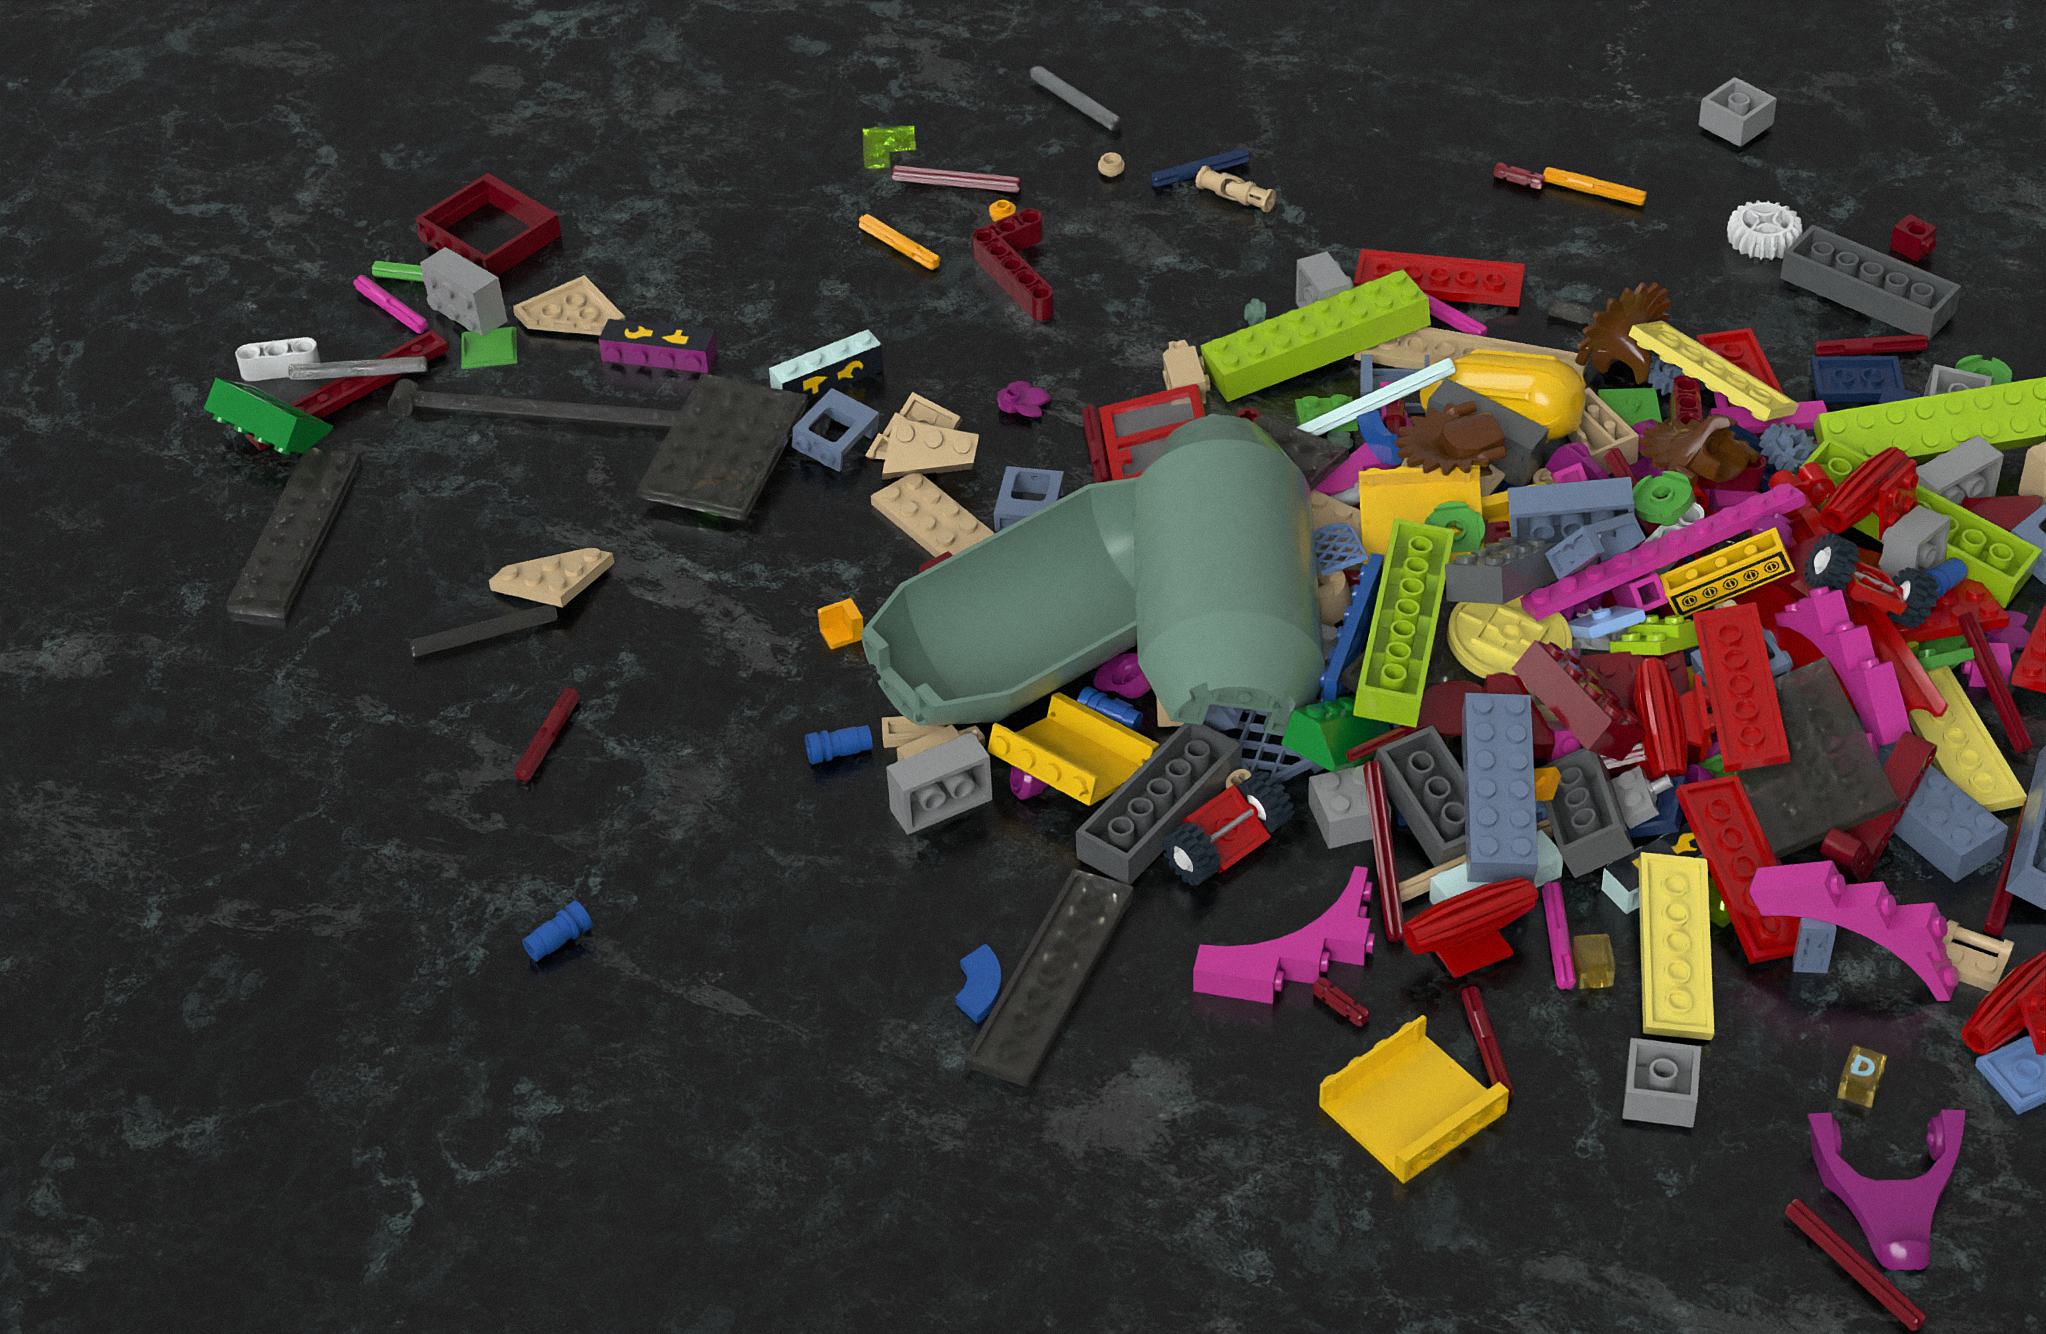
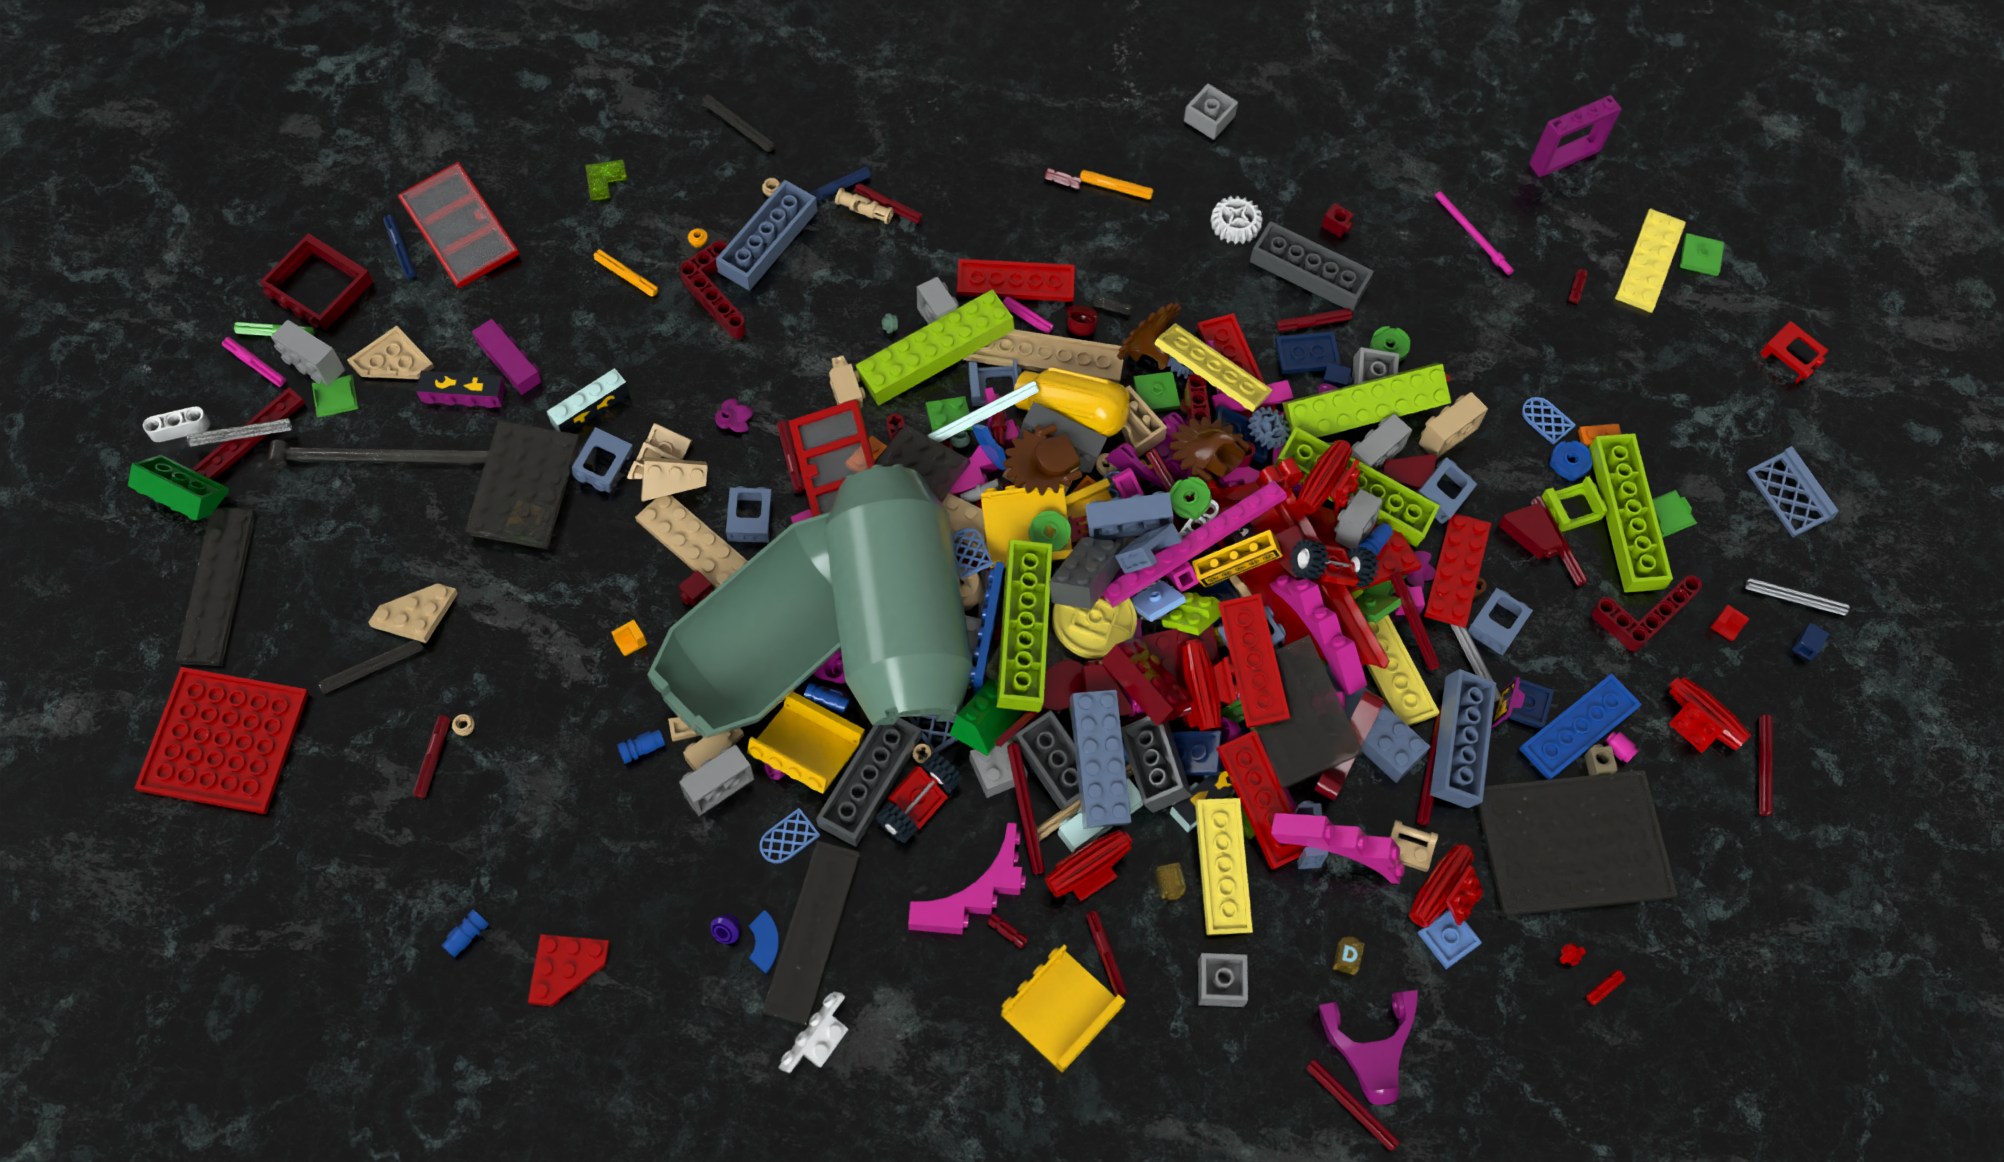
camera: 15 degrees left, 20 degrees up
(269, 693) = (222, 740): none -> red plate
(596, 702) = (459, 720): none -> tan plate
(603, 199) = (399, 246): none -> dark blue axle
(685, 181) = (458, 225): none -> clear door
(688, 984) = (564, 965): none -> red plate
(725, 315) = (506, 356): none -> magenta brick
(926, 957) = (725, 928): none -> dark purple cone
(956, 179) = (660, 208): axle -> none
(1016, 855) = (774, 829): none -> medium blue window
(1047, 1101) = (819, 1037): none -> white bracket
(1096, 208) = (766, 235): none -> sand blue brick
(1283, 195) = (887, 202): none -> dark red axle
(1528, 326) = (1081, 320): none -> dark red cap
(1546, 783) = (1130, 744): light orange plate -> none
(1559, 935) = (1146, 859): dark pink axle -> none
(1638, 796) = (1190, 747): light grey plate -> none
(1778, 521) = (1265, 522): magenta cone -> none

